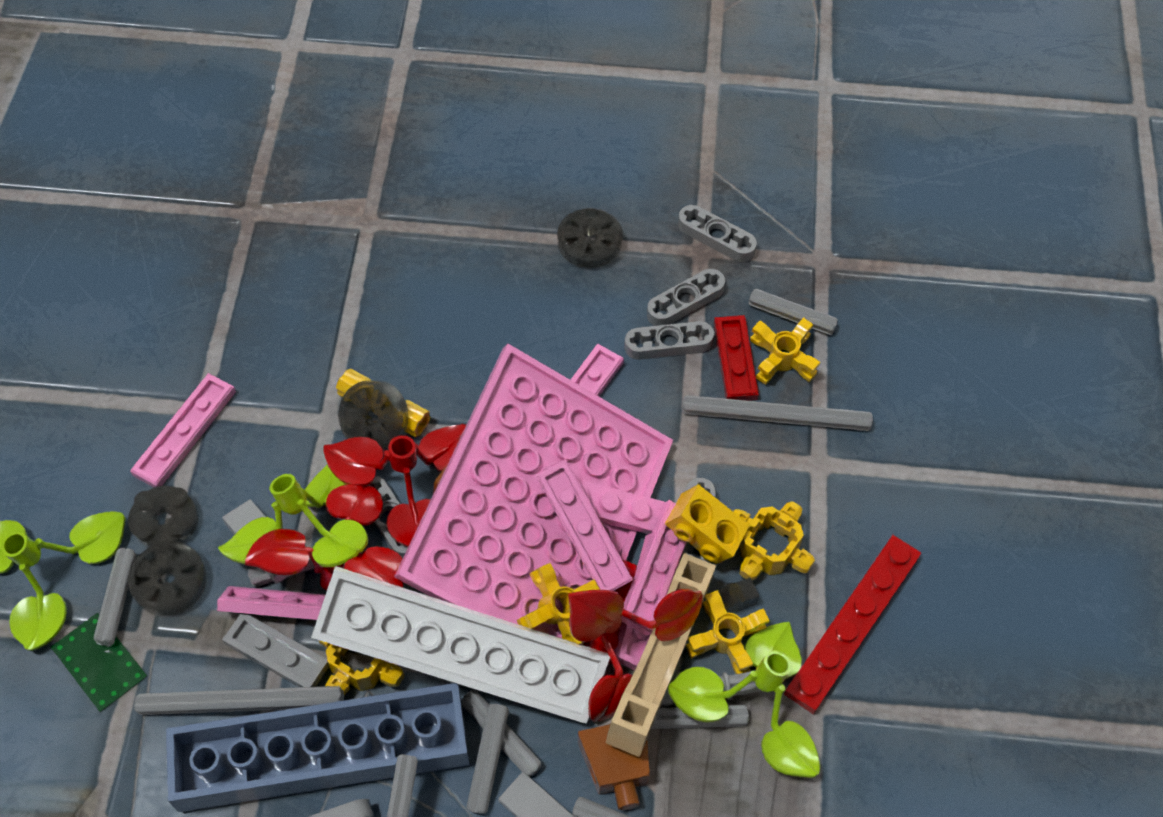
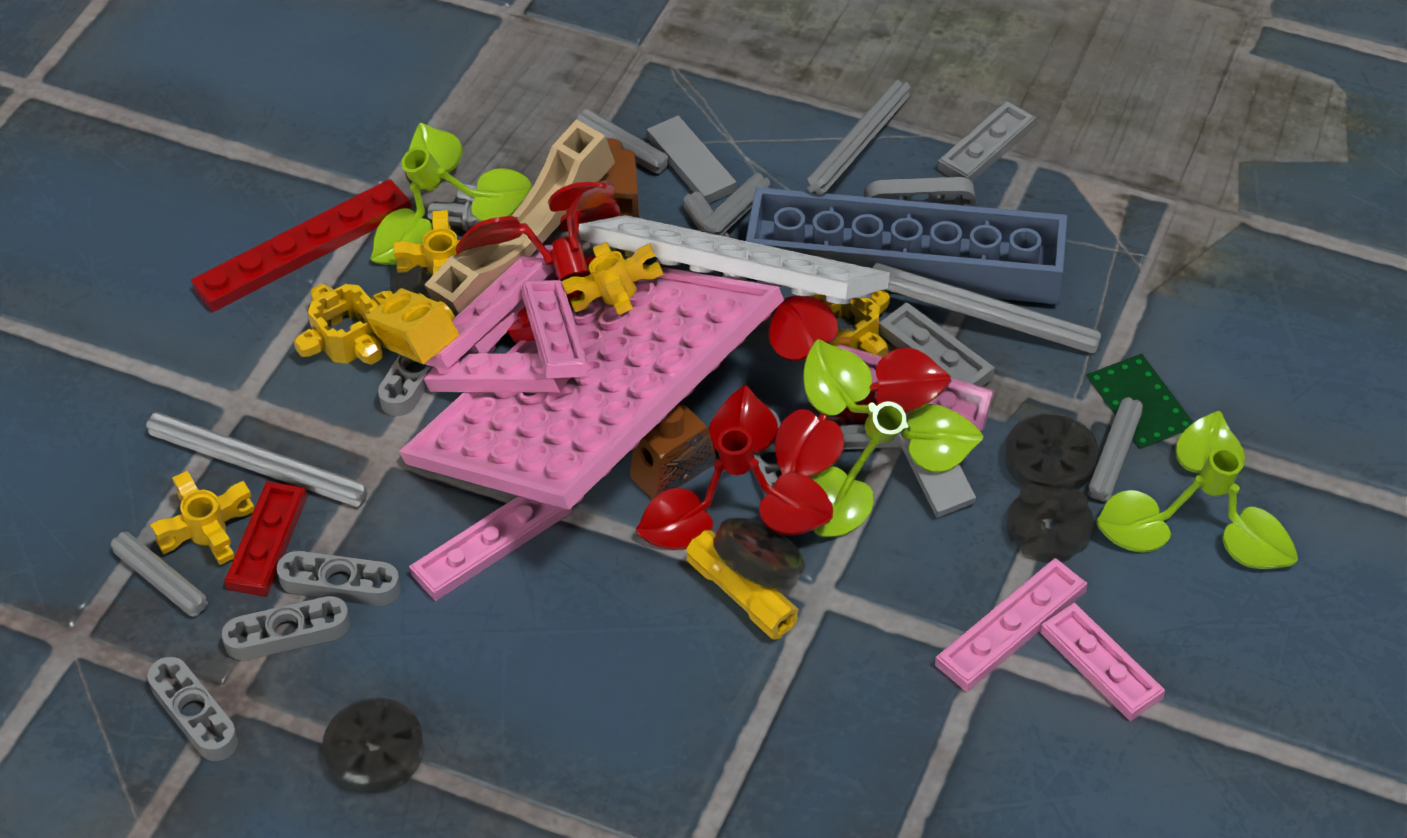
camera: 160 degrees left, 10 degrees down
(115, 418) = (1102, 661): none -> bright pink tile

